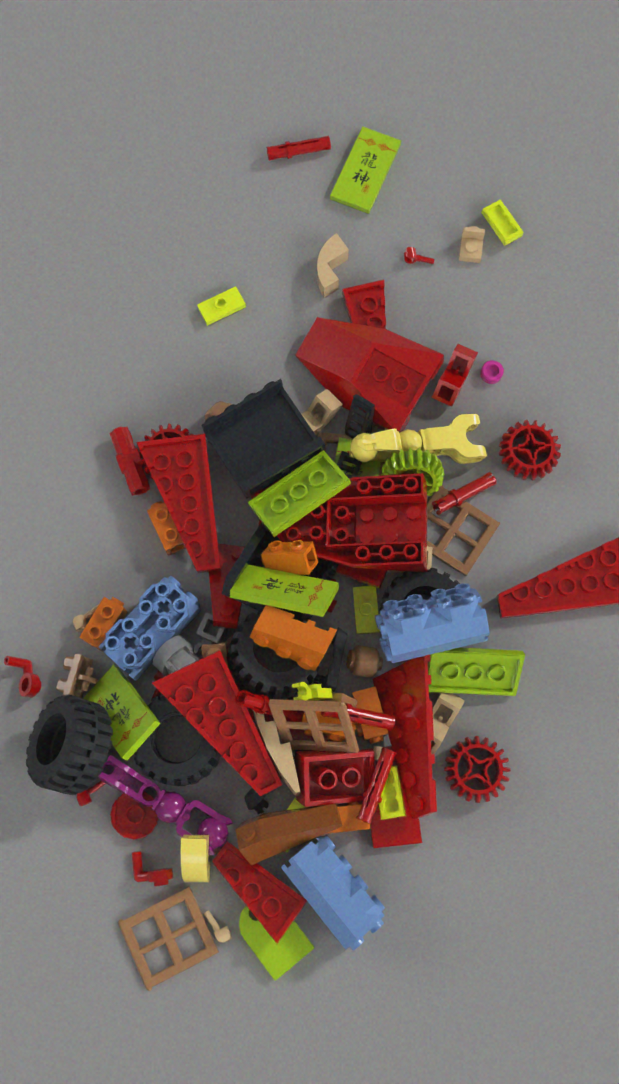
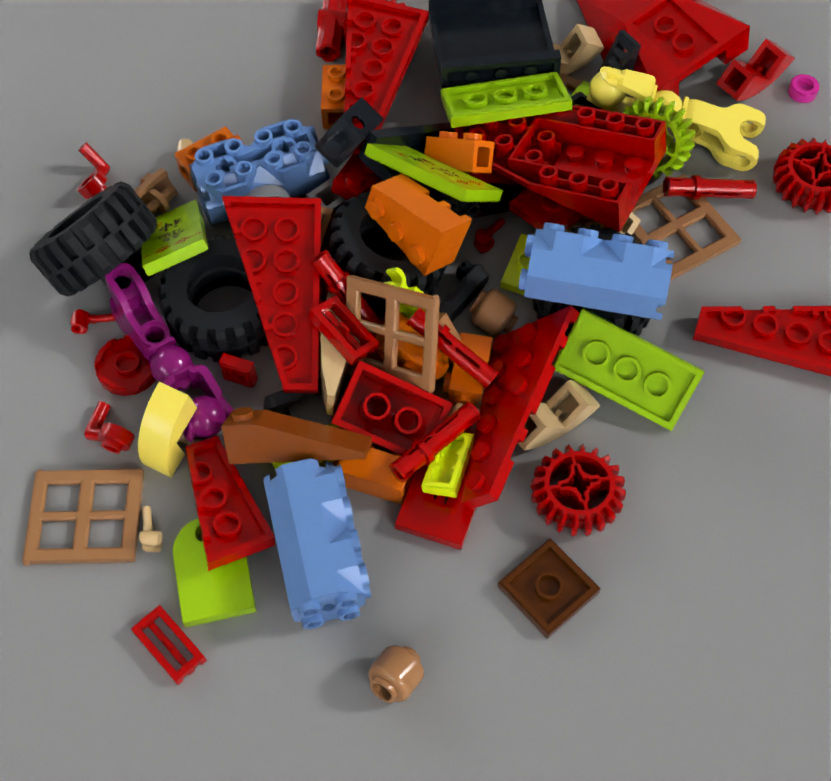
camera: 25 degrees right, 15 degrees down
(205, 578) = (344, 137): none -> black torso
(216, 786) = (238, 370): none -> red tile
(252, 989) = (188, 667): none -> red tile
(276, 746) = (338, 332): none -> red tile
(424, 950) = (395, 674): none -> medium nougat head
(487, 843) = (549, 588): none -> reddish brown tile

